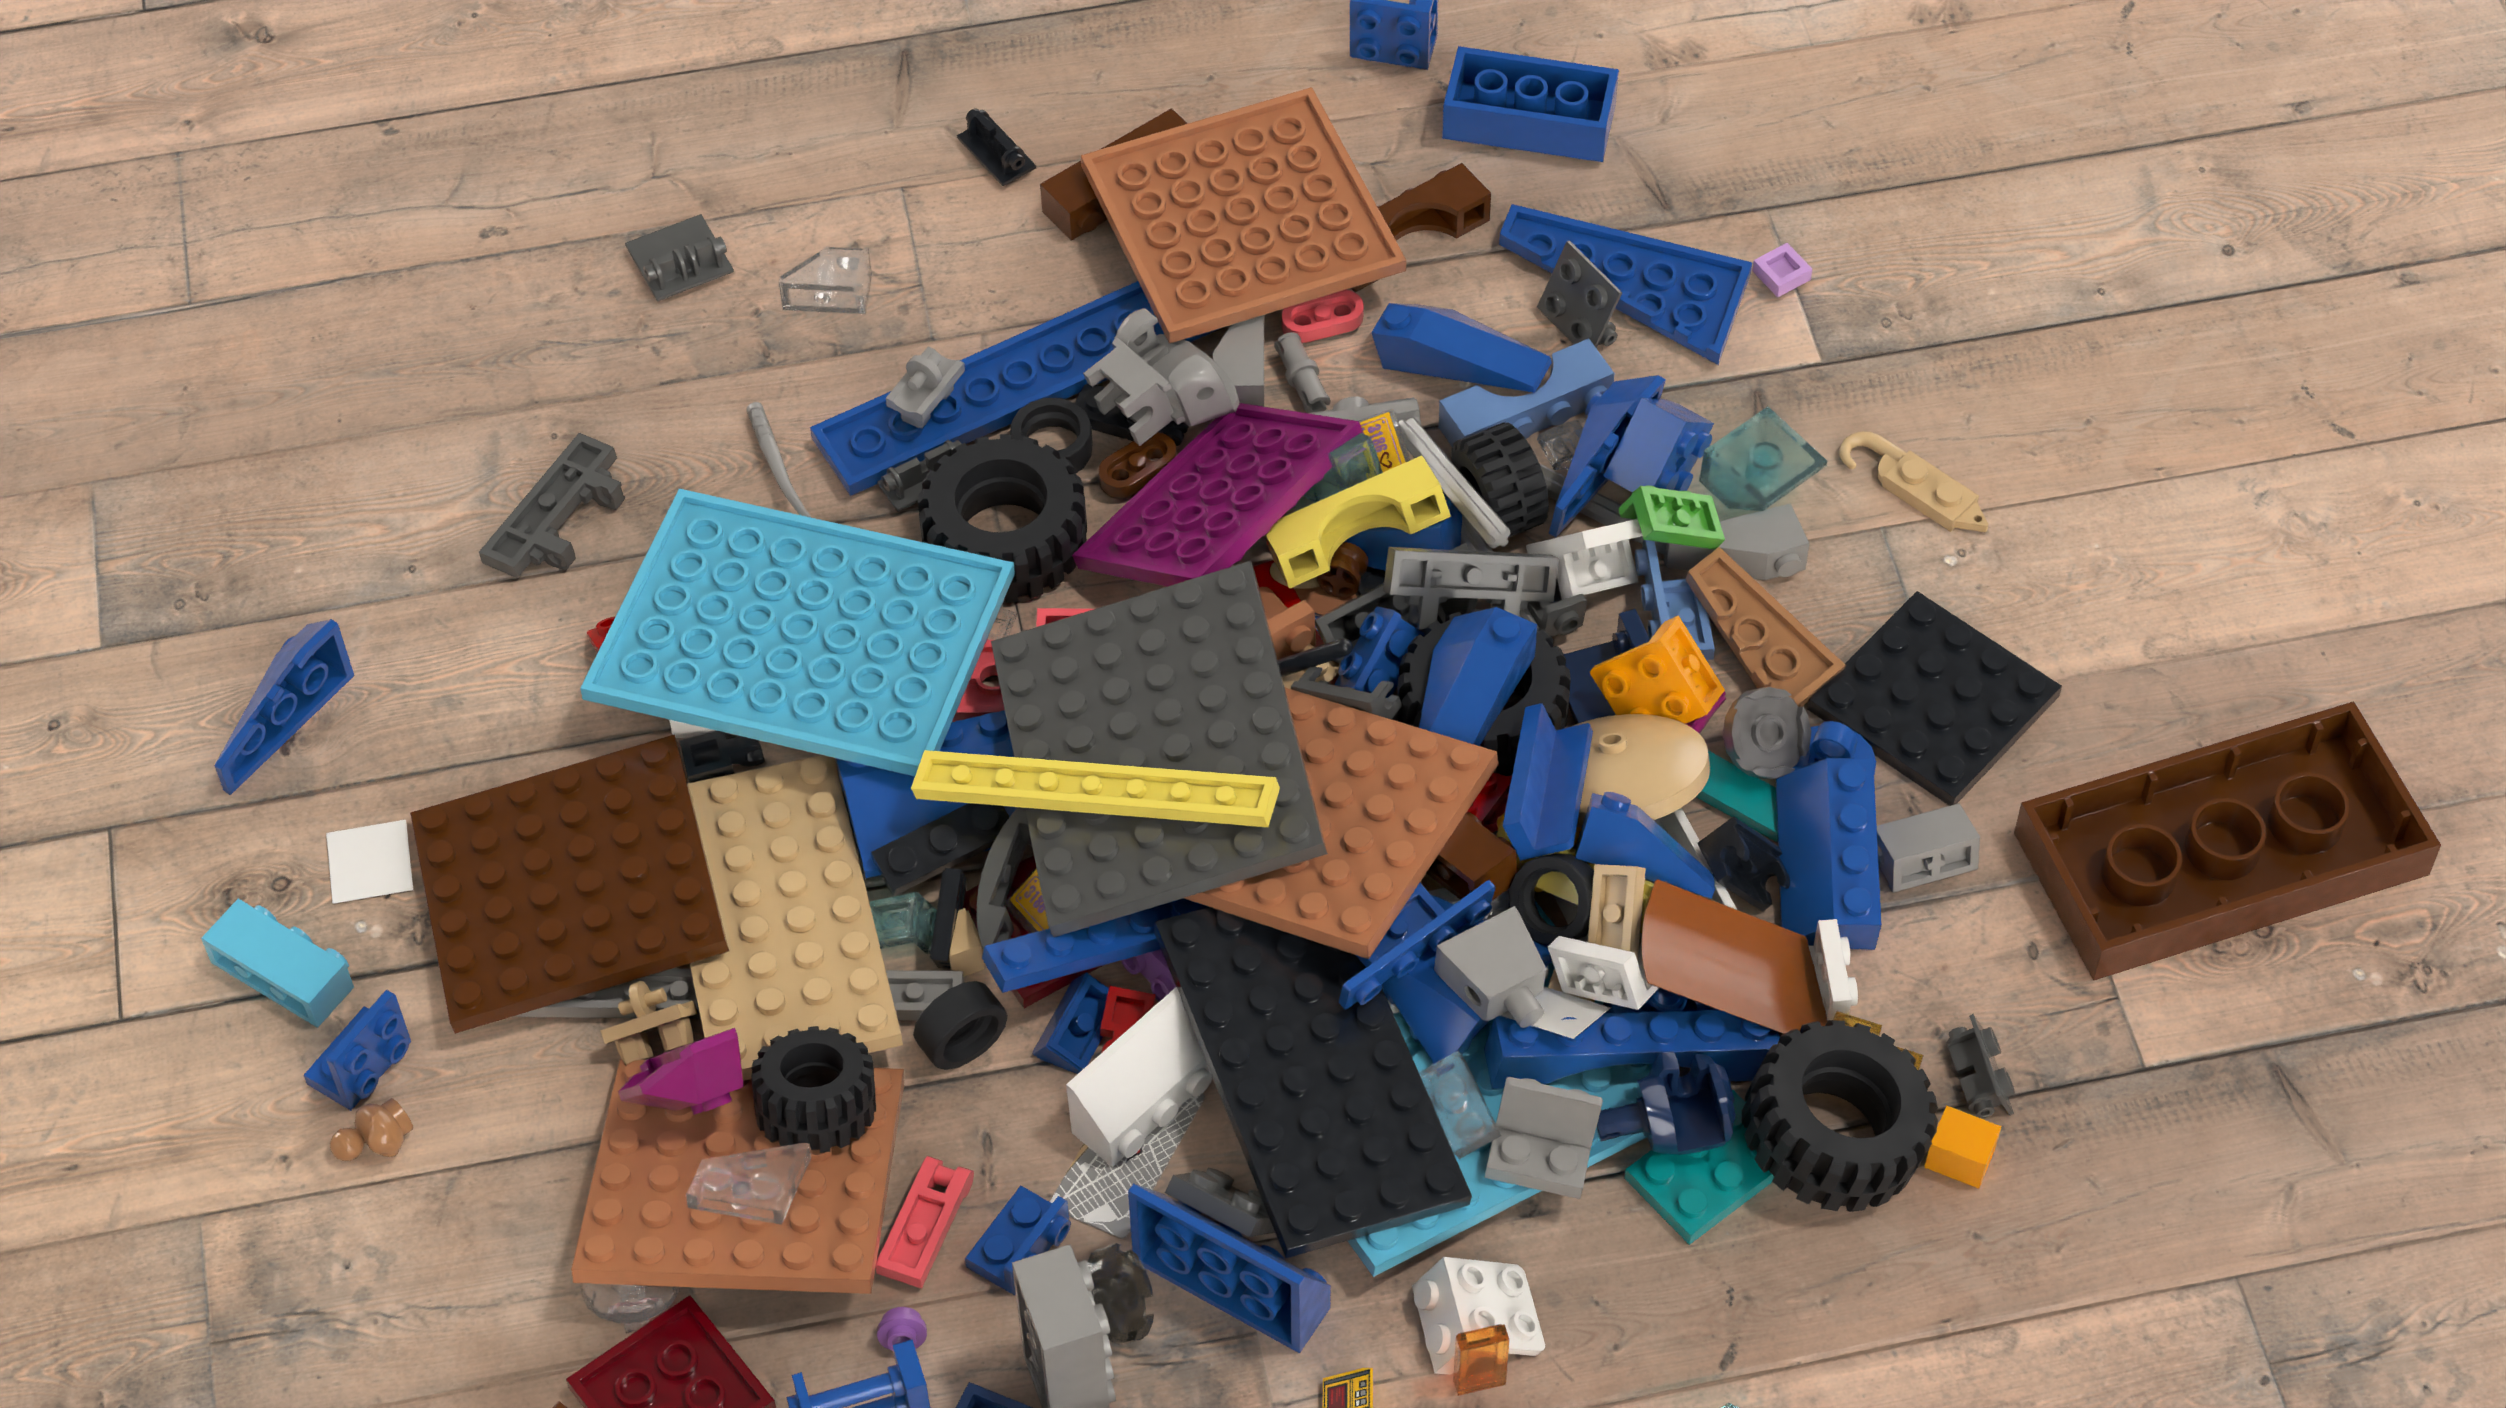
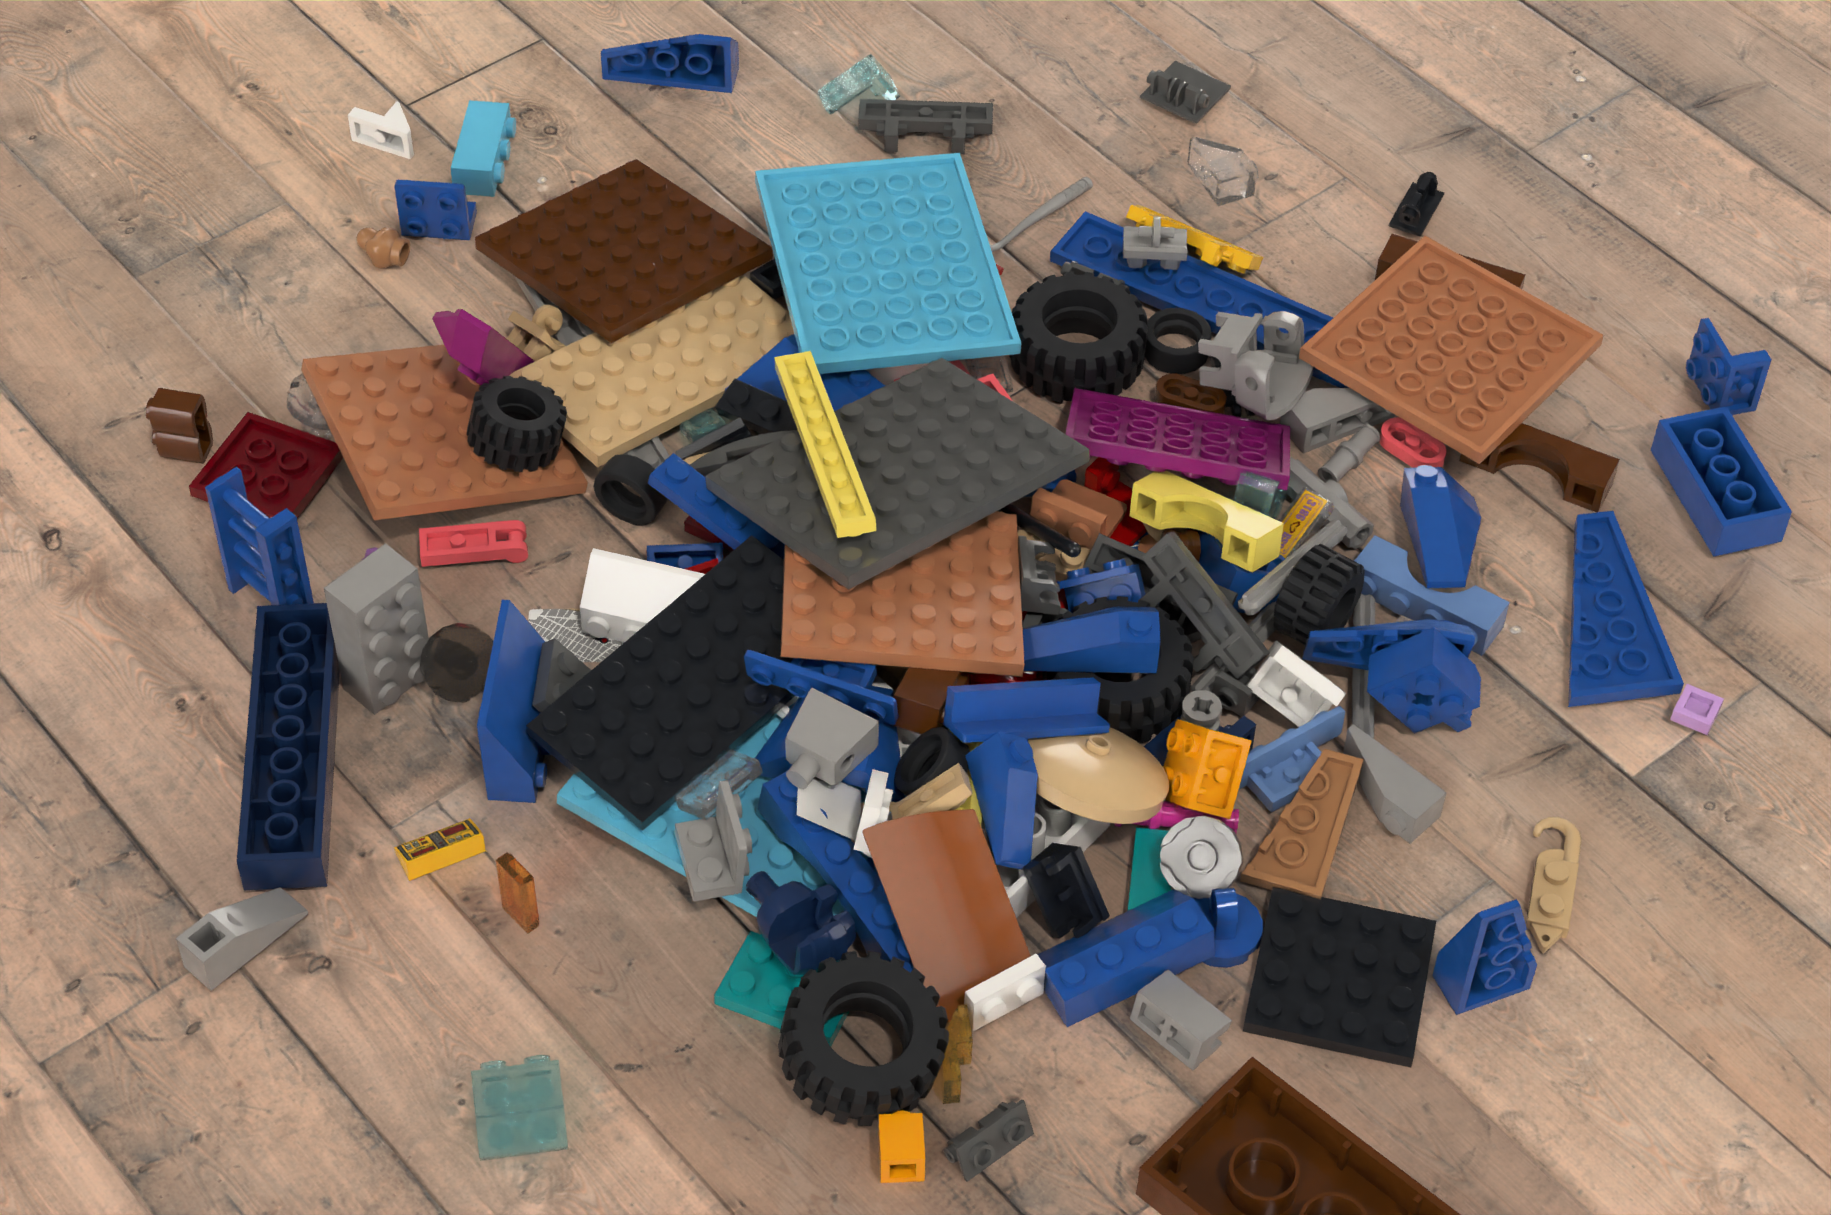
camera: 60 degrees right, 5 degrees down
(178, 1050) = (381, 132): none -> white slope
(369, 861) = (590, 159): white sticker -> none
(451, 548) = (856, 80): none -> clear light blue bracket
(750, 1183) = (423, 422): clear wing -> none
(890, 366) = (1209, 247): none -> yellow hinge
(1021, 1230) = (480, 599): blue bracket -> none
(1474, 1295) = (576, 887): white bracket -> none
(1572, 643) = (1202, 709): none -> light grey wheel
(1580, 299) = (1545, 591): dark grey hinge -> none
(1674, 517) = (1358, 711): bright green bracket -> none
(1758, 463) = (1473, 755): clear light blue slope -> none
(2004, 571) = (1486, 959): none -> blue wedge

